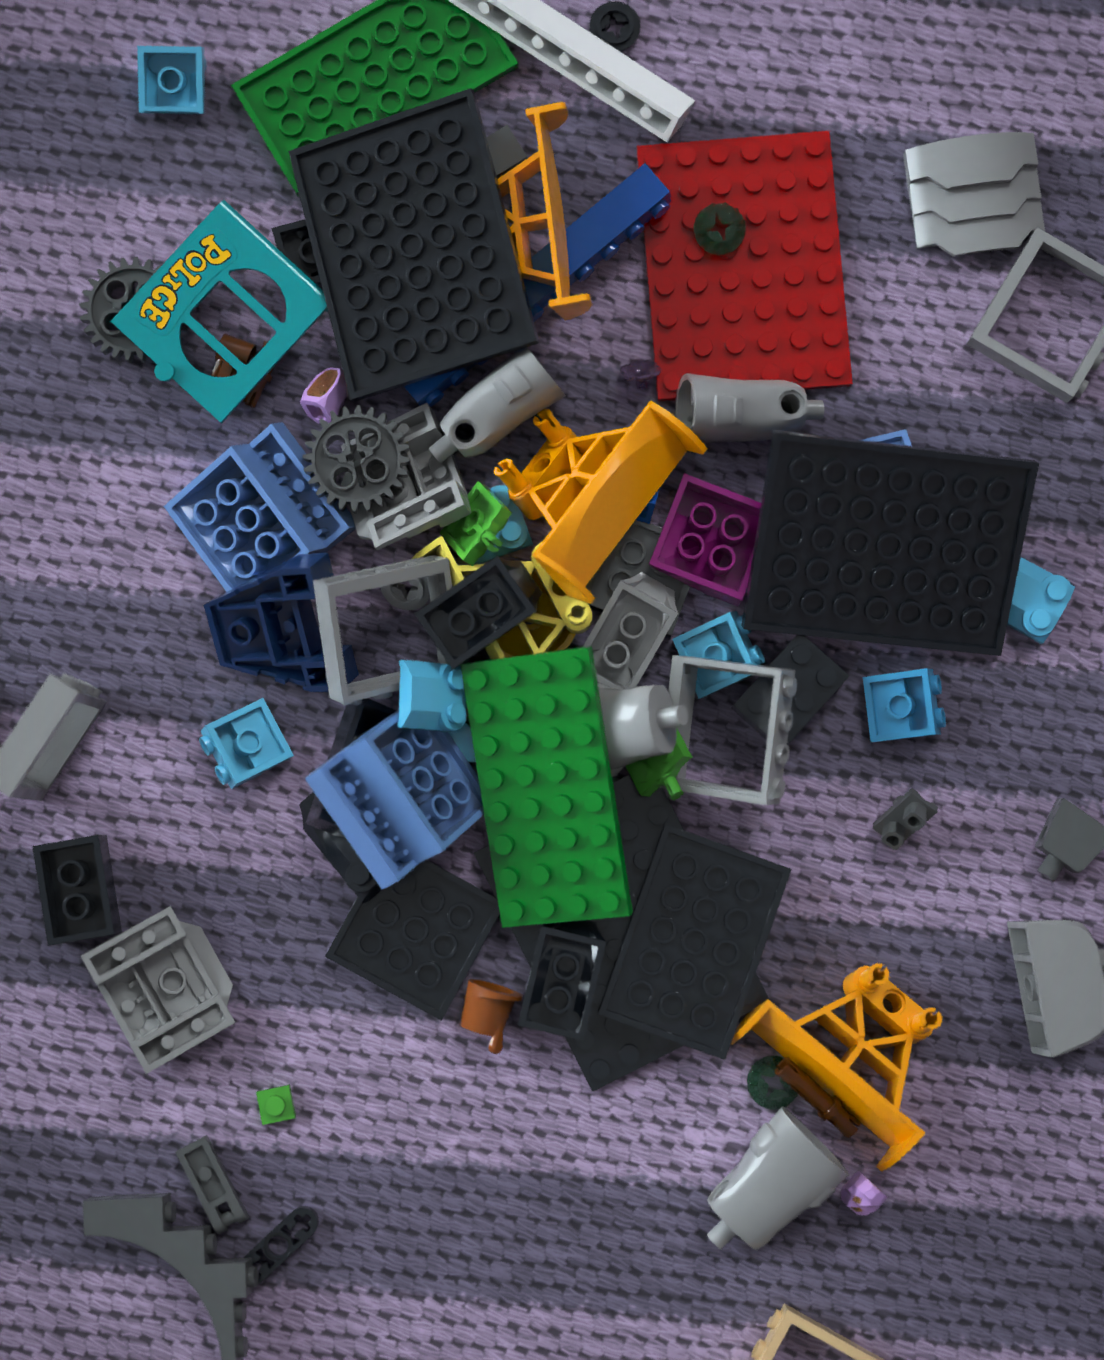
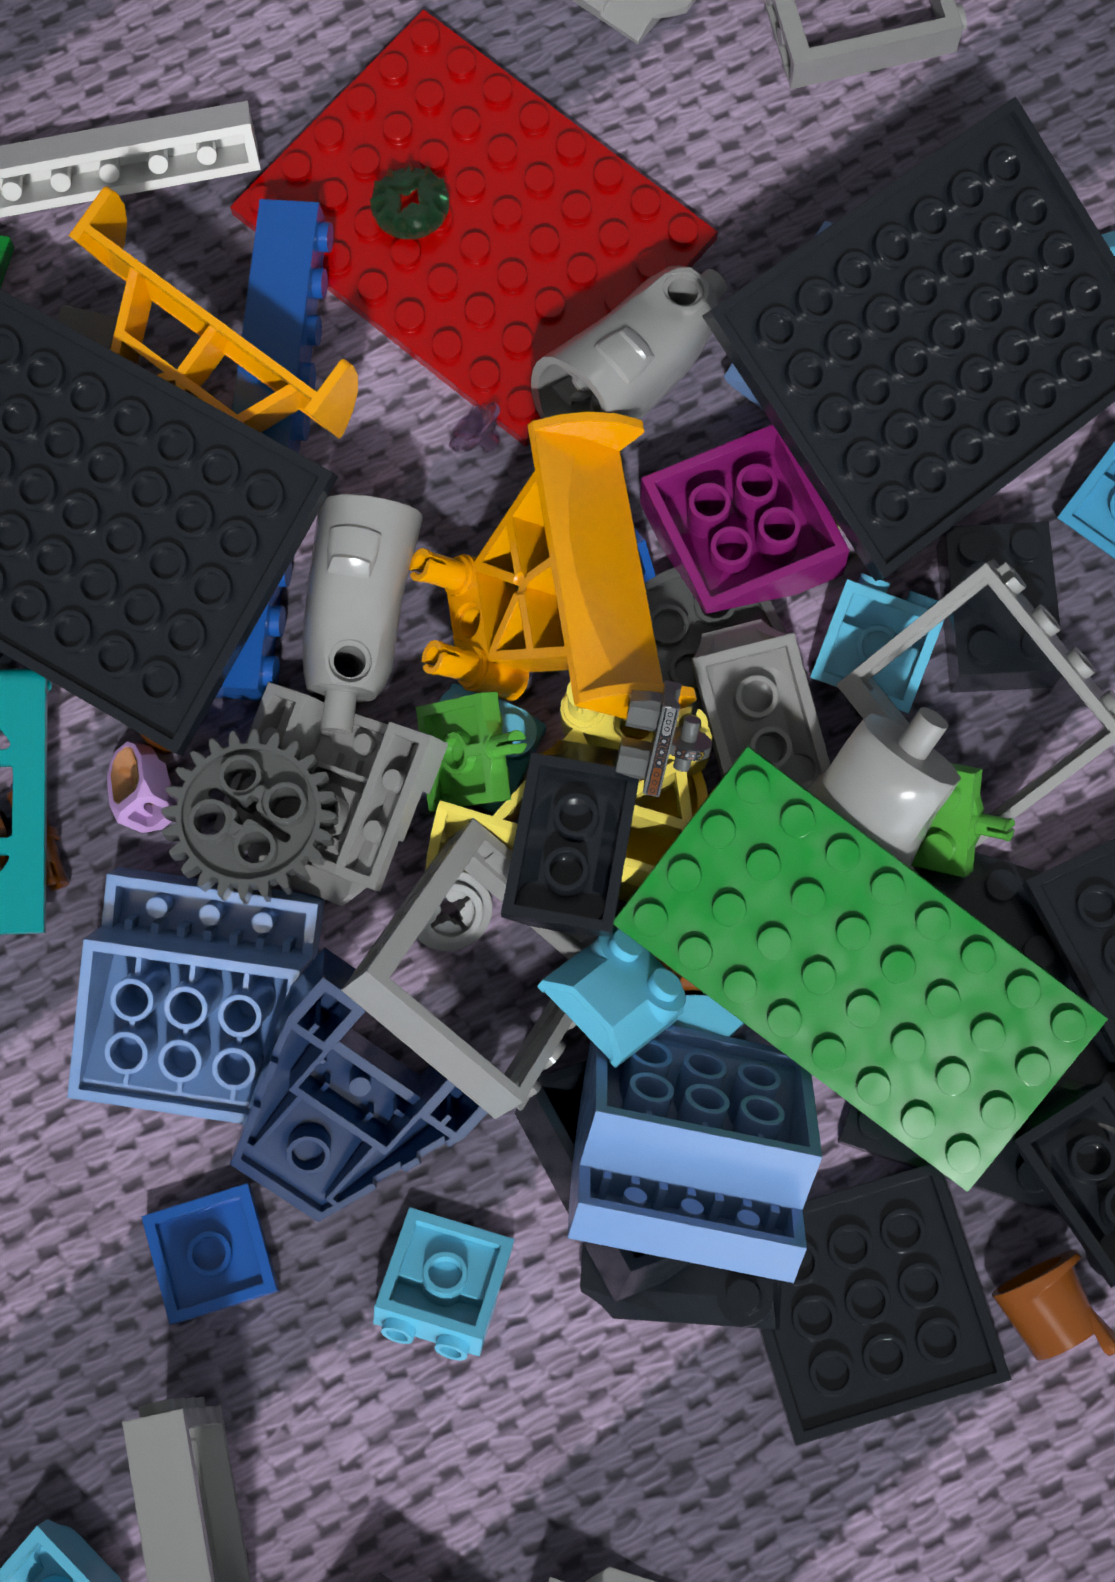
camera: 45 degrees left, 10 degrees down
(161, 634) = (210, 1254): none -> blue plate
(562, 617) = (649, 759): none -> dark grey hips
(622, 15) = (78, 95): black gear -> none

